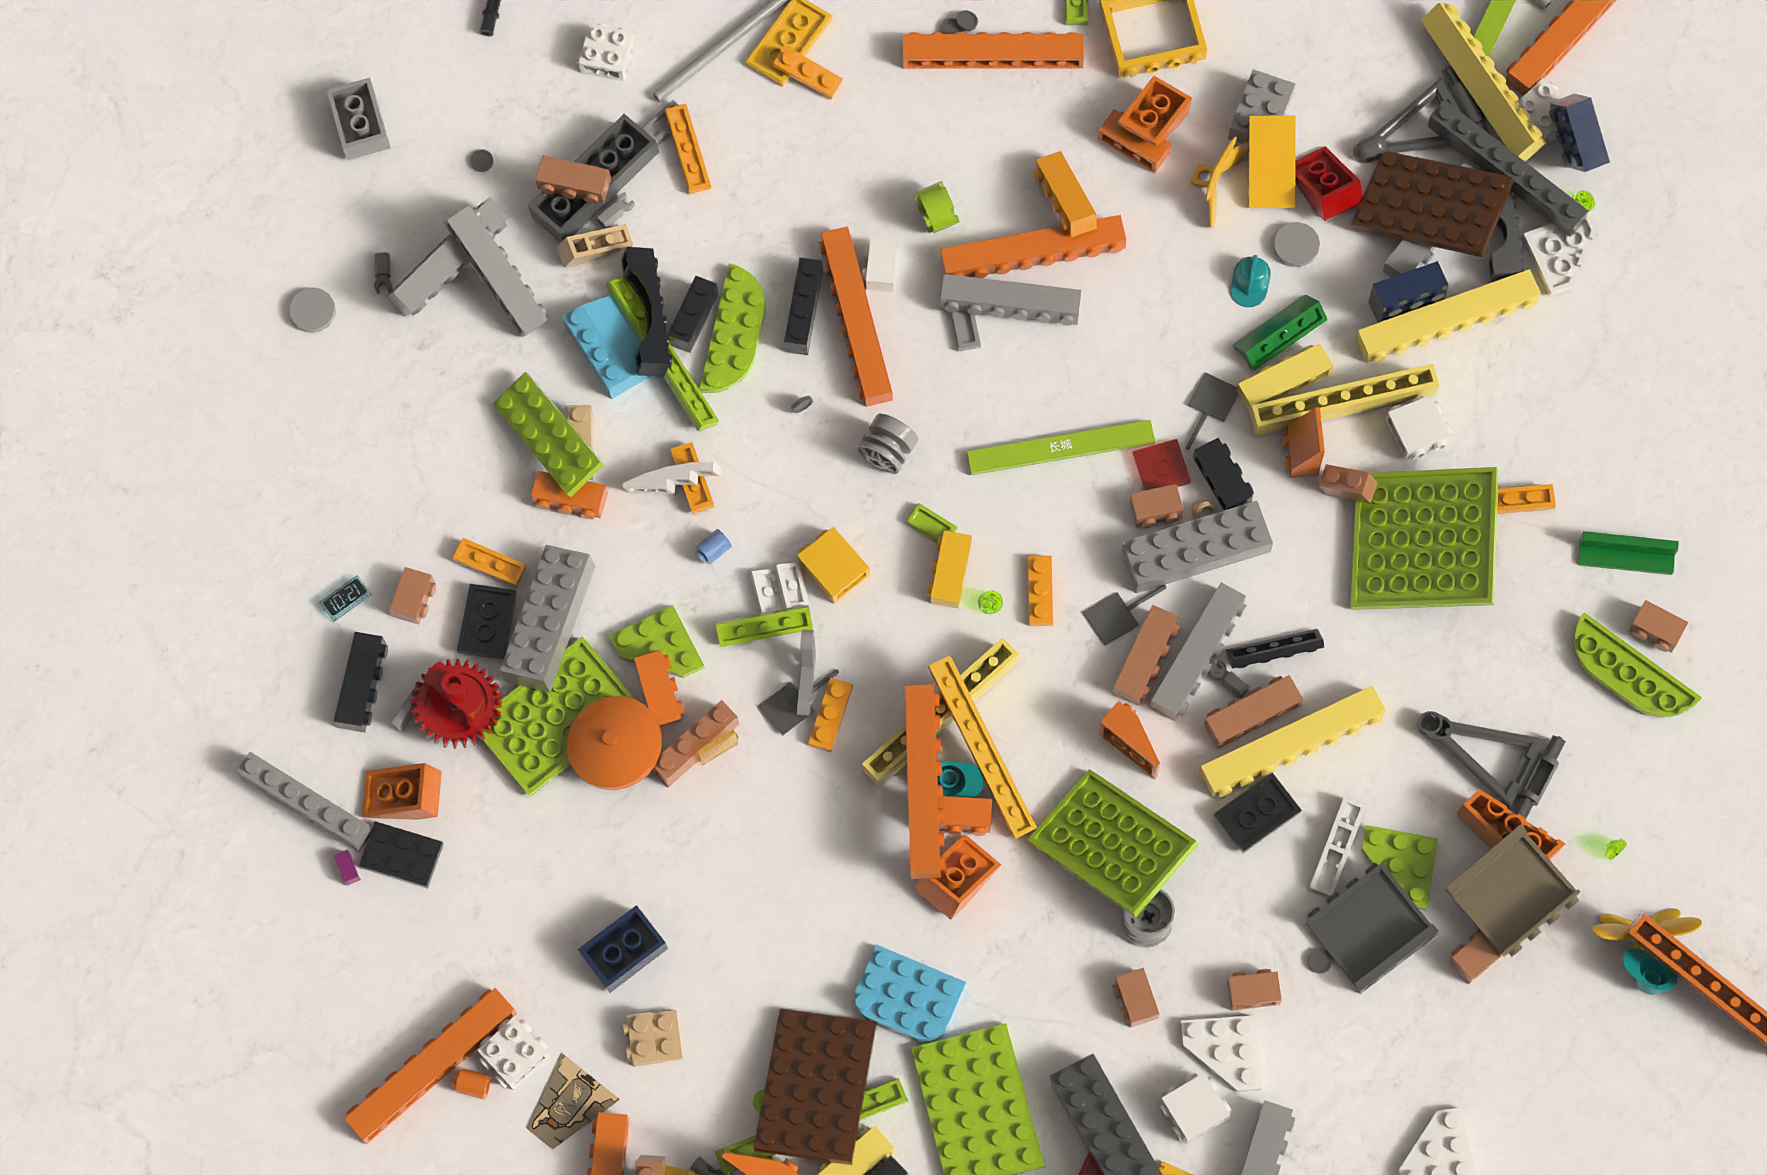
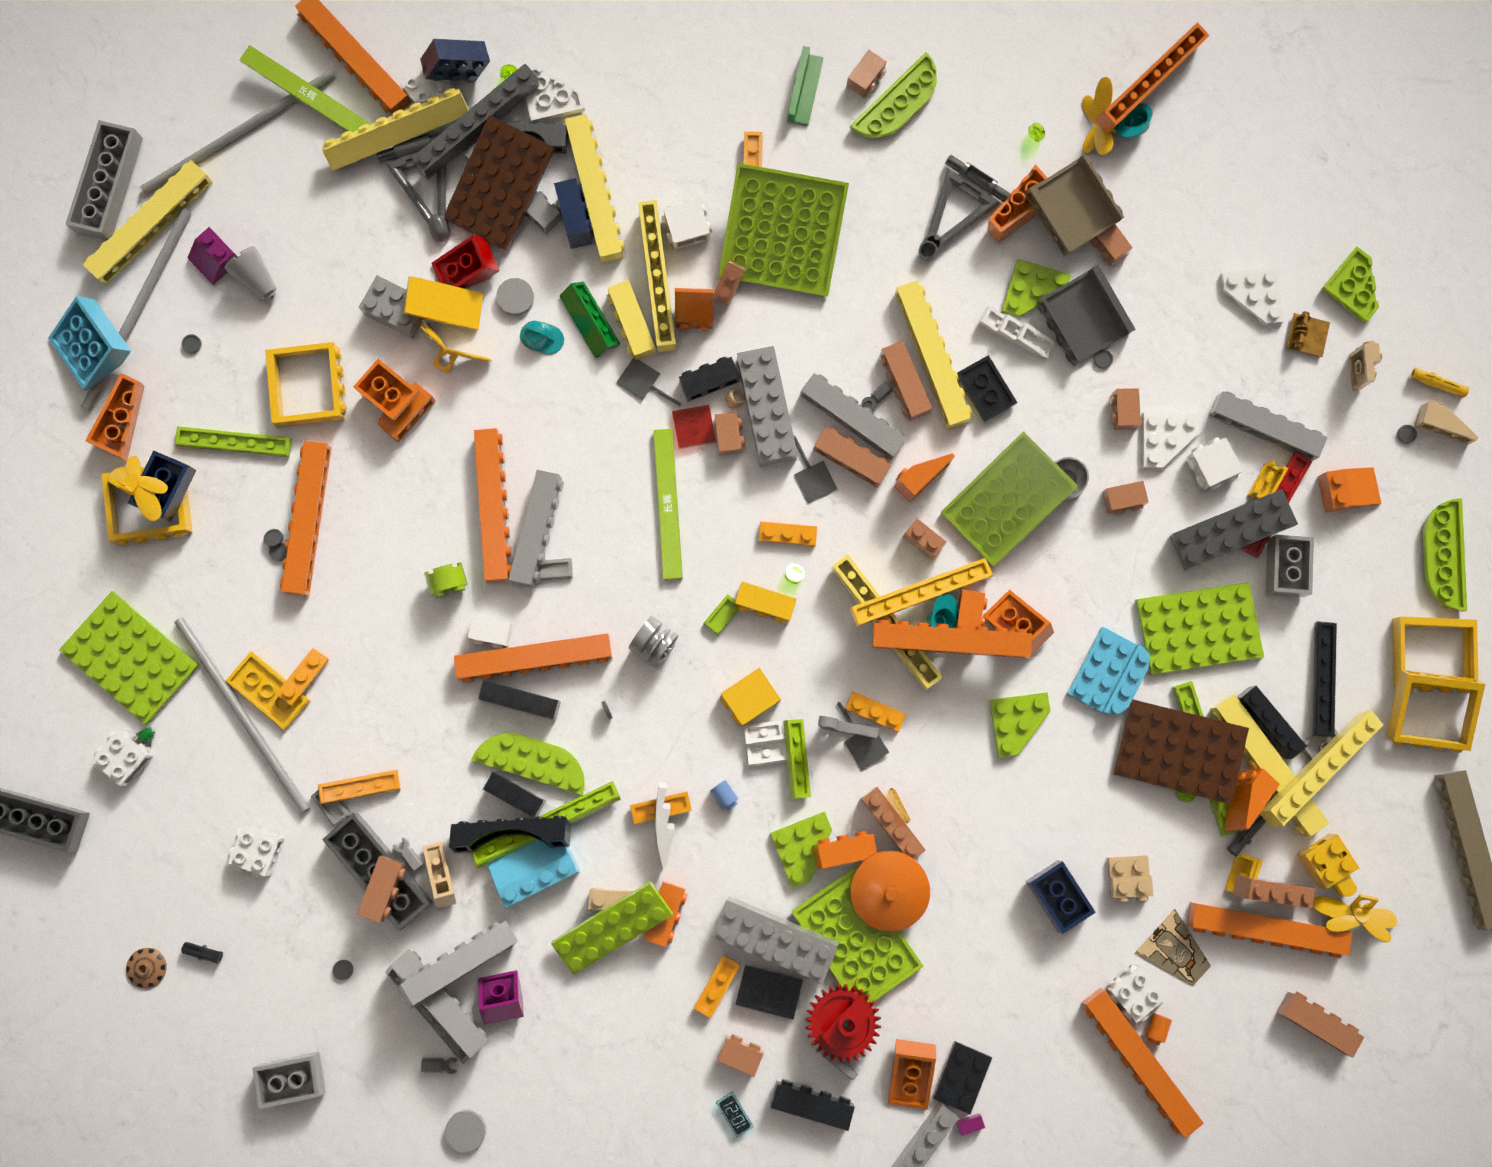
camera: 95 degrees left, 10 degrees up
(461, 327) = (500, 997): none -> magenta slope
(836, 886) = (1017, 720): none -> lime plate
(1051, 750) = (924, 538): none -> nougat brick
(1065, 194) = (449, 472): light orange brick -> none
(1274, 648) = (856, 358): black plate -> none

